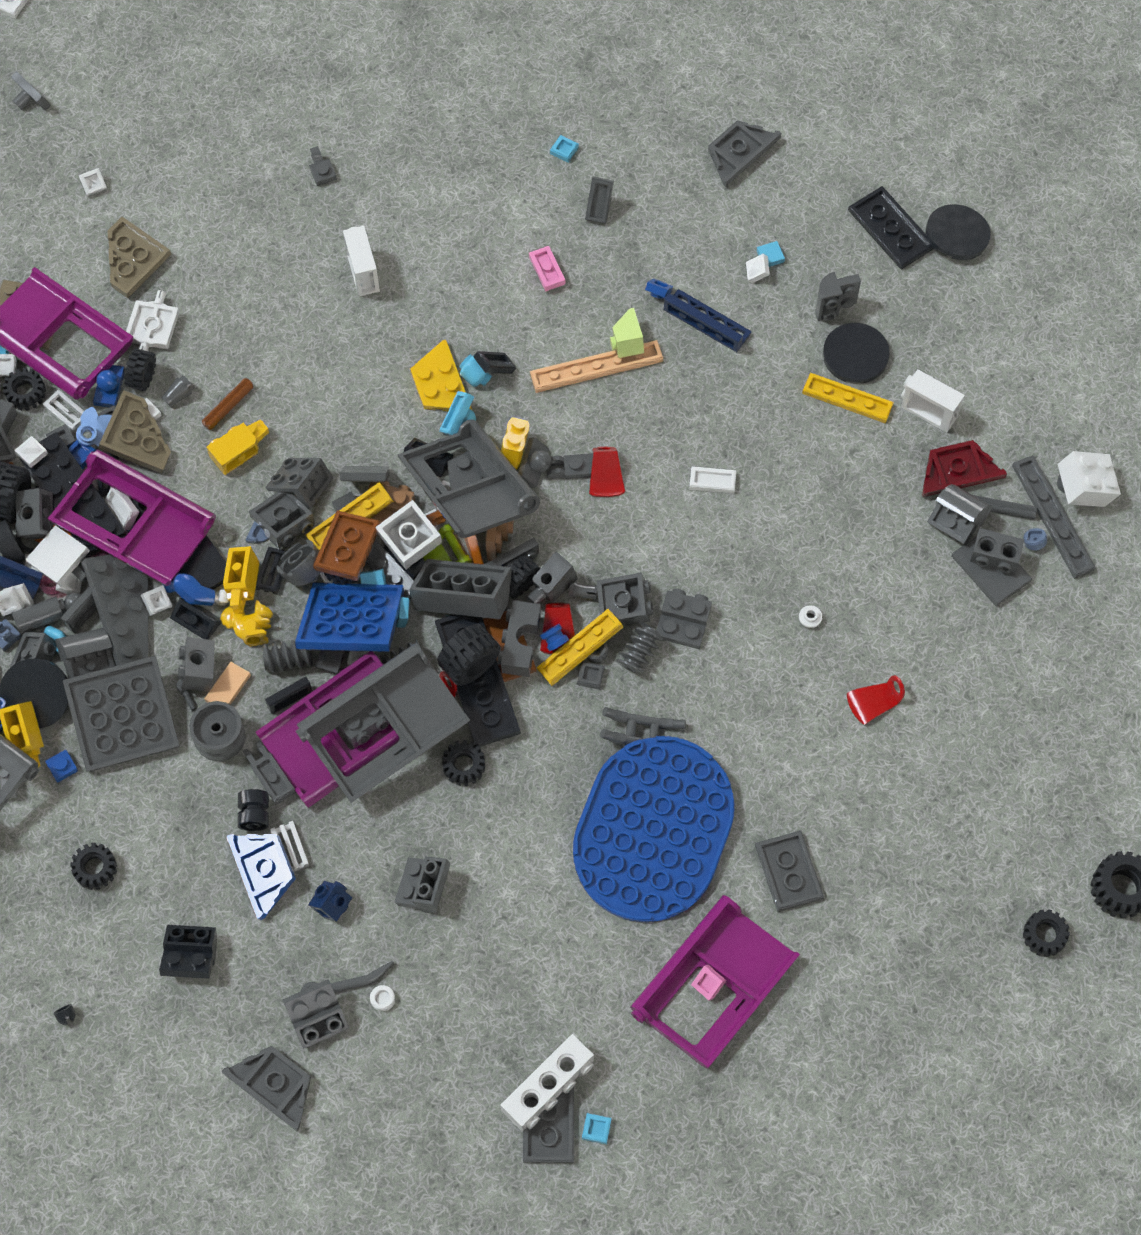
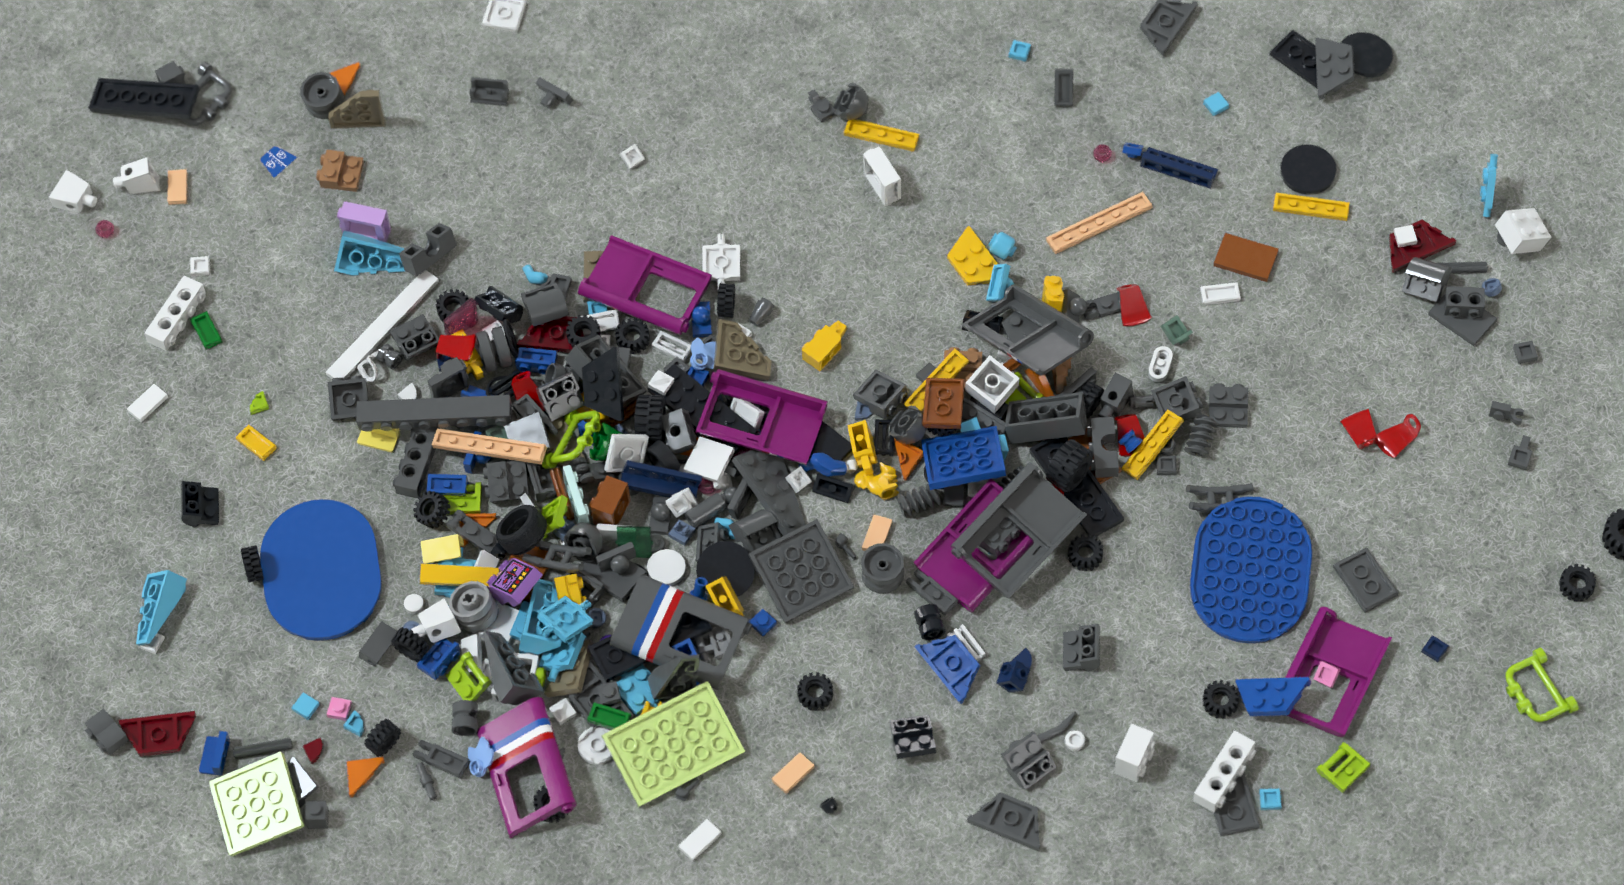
camera: 10 degrees left, 5 degrees down
(36, 963) = (793, 773): none -> light nougat tile
(132, 256) = (686, 210): dark tan plate -> none
(198, 652) = (849, 520): dark grey brick -> none
(227, 404) = (804, 313): dark orange axle -> none
(288, 695) = (929, 530): black tile -> none
(292, 602) = (909, 457): none -> orange tile
(302, 476) = (886, 357): dark grey bracket -> none
(352, 881) = (1025, 657): none -> dark blue tile
(355, 171) = (852, 102): none -> dark grey cylinder
(364, 473) = (938, 345): dark grey tile -> none
(379, 213) = (881, 134): none -> yellow tile
(445, 1034) = (1134, 753): none -> white brick
(494, 362) = (1017, 235): black tile -> none
(547, 268) = (1035, 151): bright pink plate -> none
(565, 972) = (1220, 710): none -> black tyre
(616, 551) = (1160, 365): none -> white plate
(623, 280) = (1102, 148): none -> clear pink plate
(627, 336) = (1120, 192): yellowish green slope -> none
(631, 997) = (1271, 695): none -> blue wing
(647, 514) = (1176, 330): none -> sand green bracket
(701, 1114) = (1348, 771): none -> lime plate
(755, 442) = (1246, 257): none -> dark orange tile
(757, 268) = (1209, 117): white tile -> none
(810, 622) = (1329, 388): white plate -> none
(833, 680) = (1360, 428): none -> red piece
(836, 294) = (1281, 124): dark grey brick -> none
(850, 978) = (1435, 648): none -> dark blue tile
(917, 237) = (1333, 65): none -> dark grey wing
(931, 400) = (1384, 187): white window -> none
(940, 1077) = (1524, 705): none -> lime bar
(947, 456) = (1405, 236): none -> white tile
(1011, 696) = (1503, 411): none -> dark grey plate
(1017, 755) = (1521, 455): none -> dark grey plate
(1053, 517) = (1501, 267): dark grey tile -> none
(1055, 627) = (1525, 352): none -> dark grey plate
(1062, 410) = (1489, 179): none -> medium azure plate

